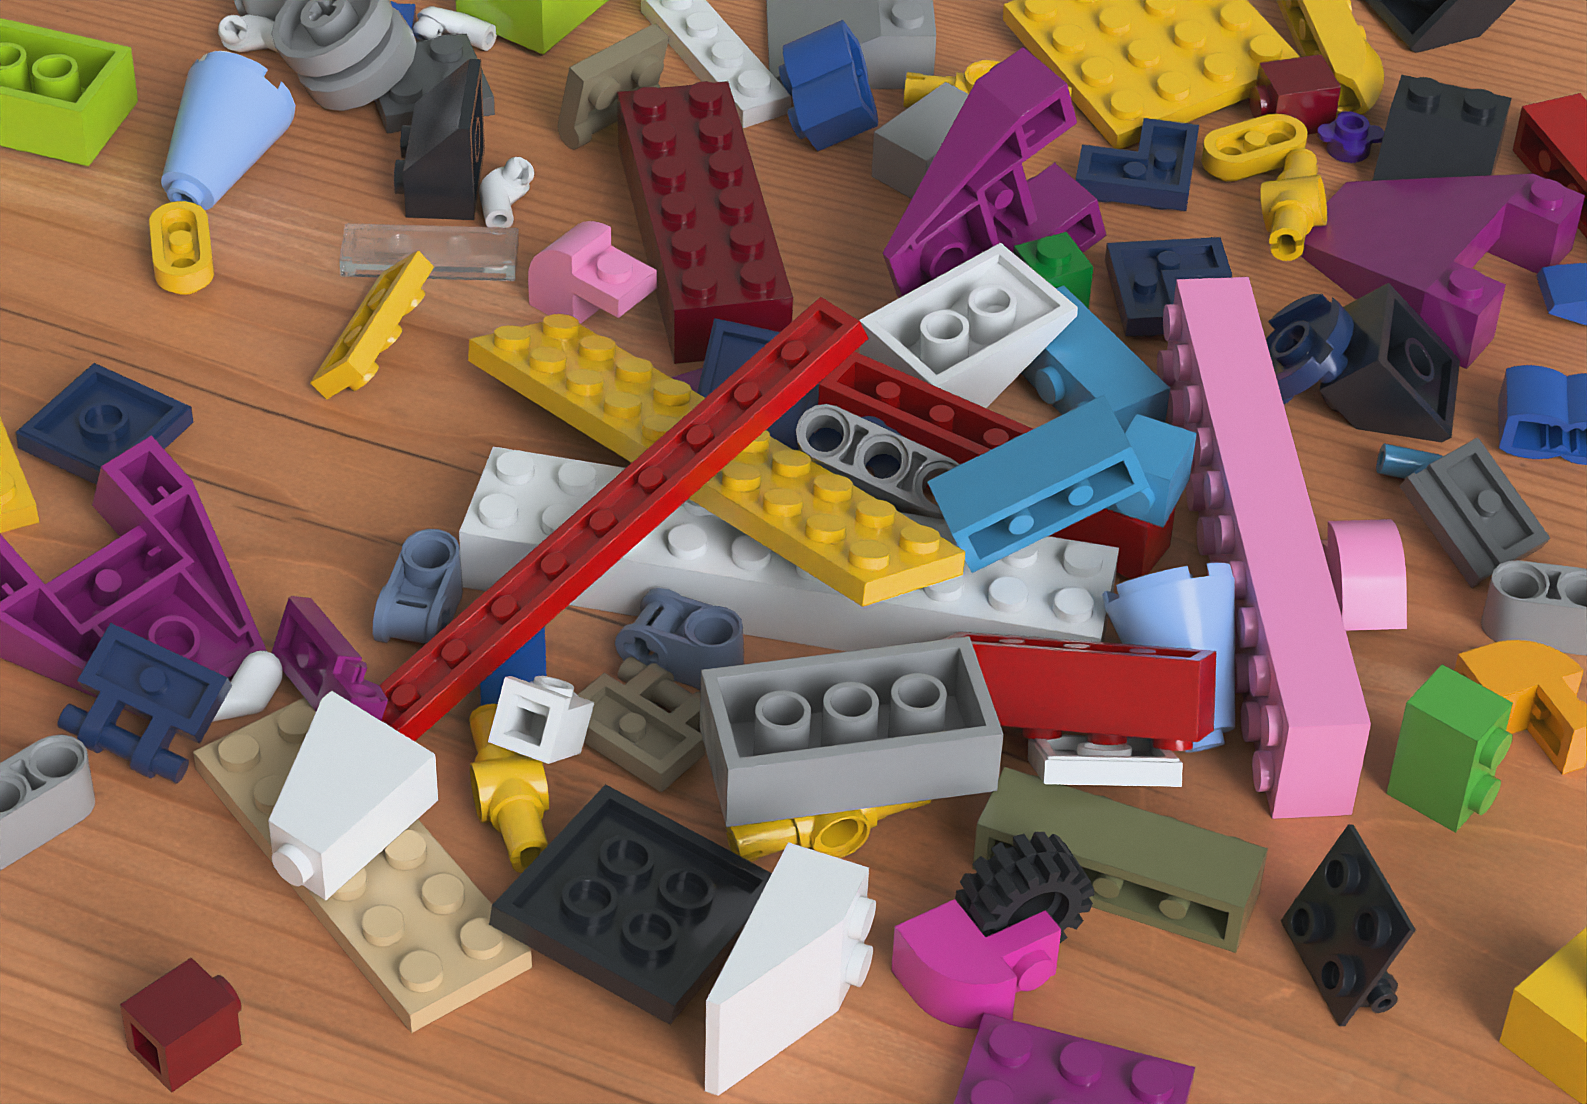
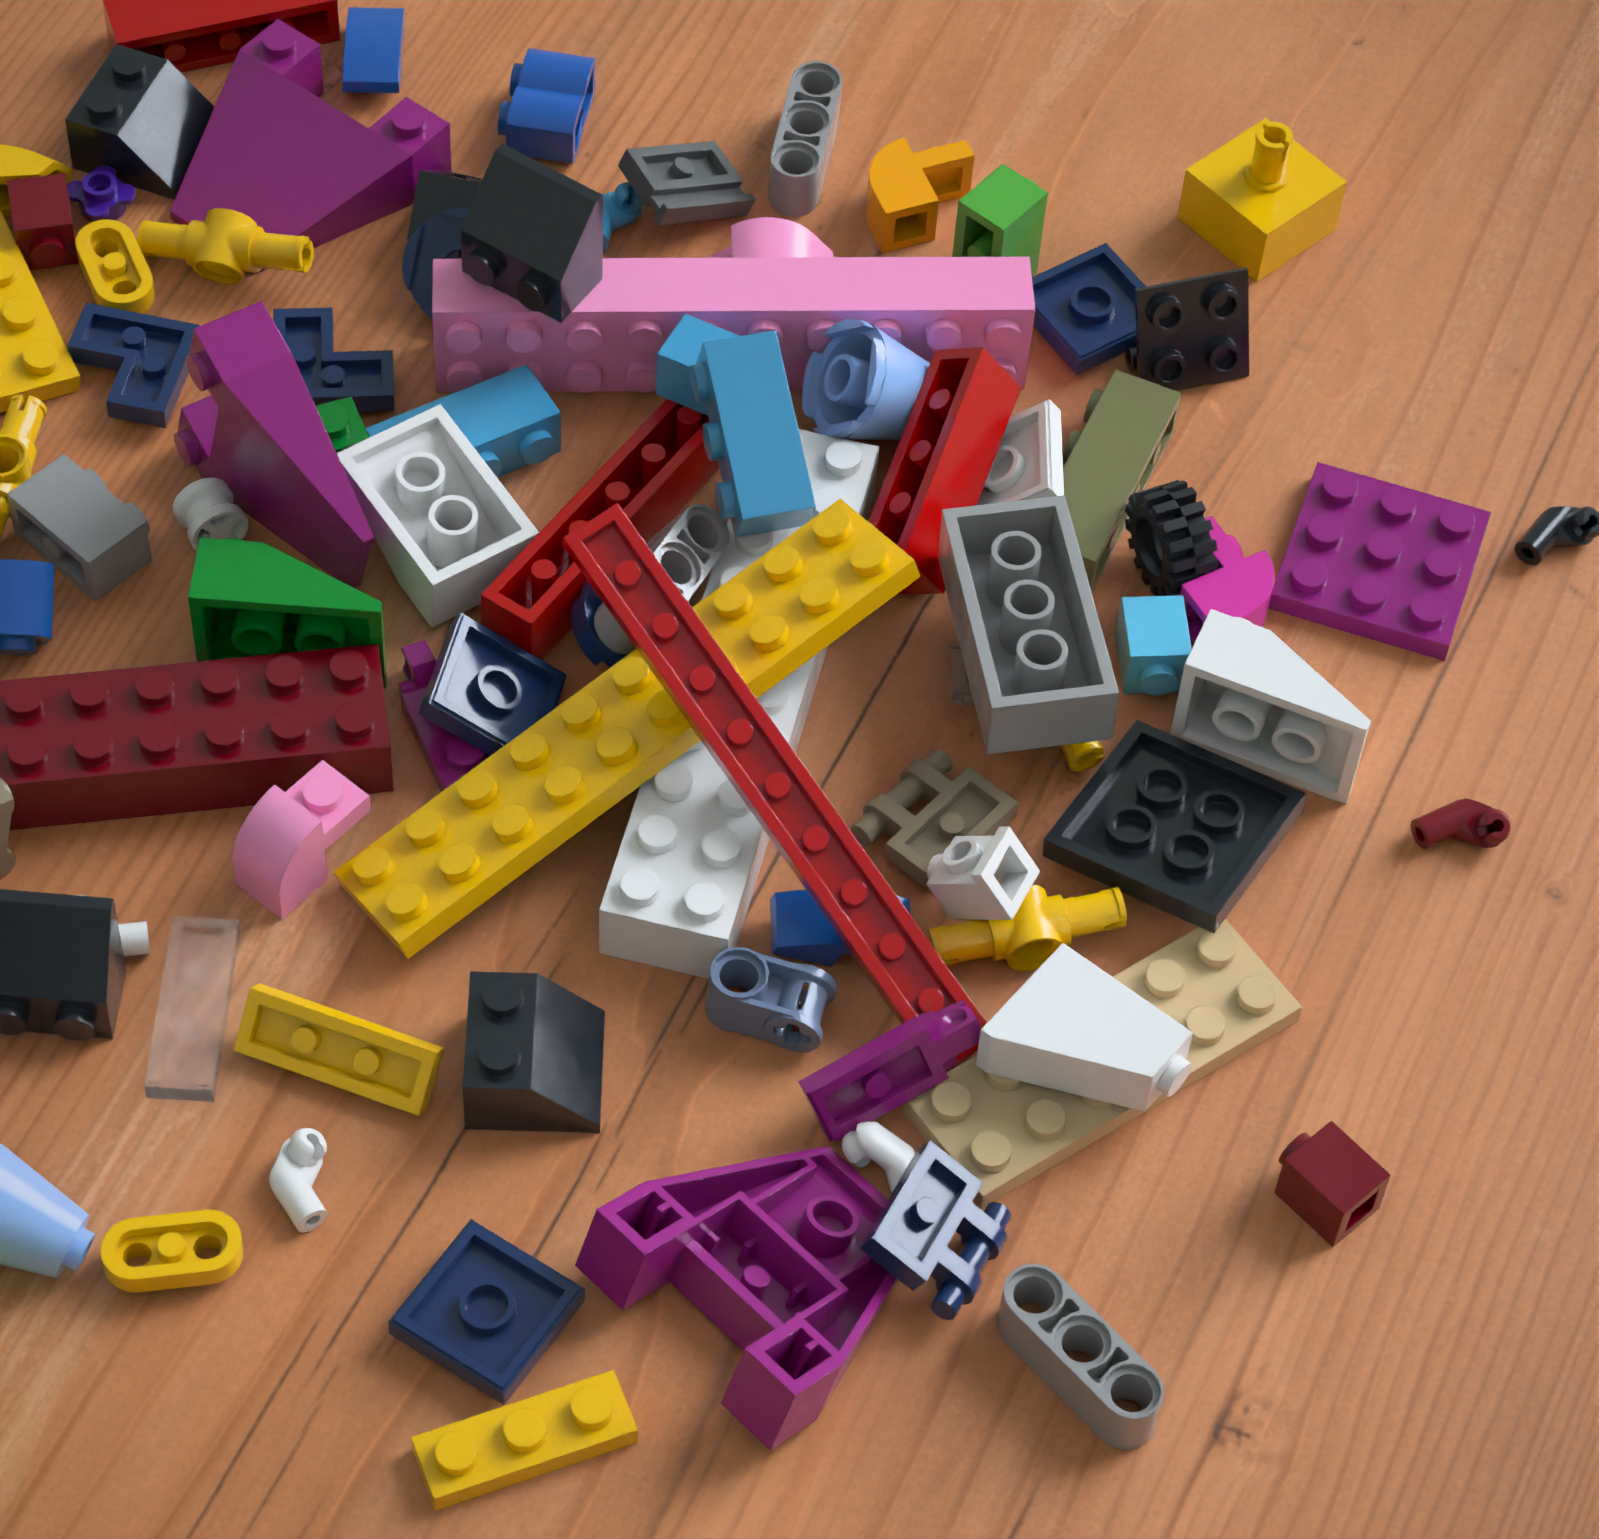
camera: 90 degrees left, 10 degrees up
(249, 314) = (295, 1175): none -> white arm
(361, 437) = (531, 1056): none -> black slope
(683, 636) = (844, 780): sand blue piece -> none
(834, 225) = (265, 603): none -> green slope
(900, 884) = (1152, 644): none -> medium azure brick
(1251, 309) = (534, 235): none -> black slope
(1412, 848) = (1087, 308): none -> dark blue plate

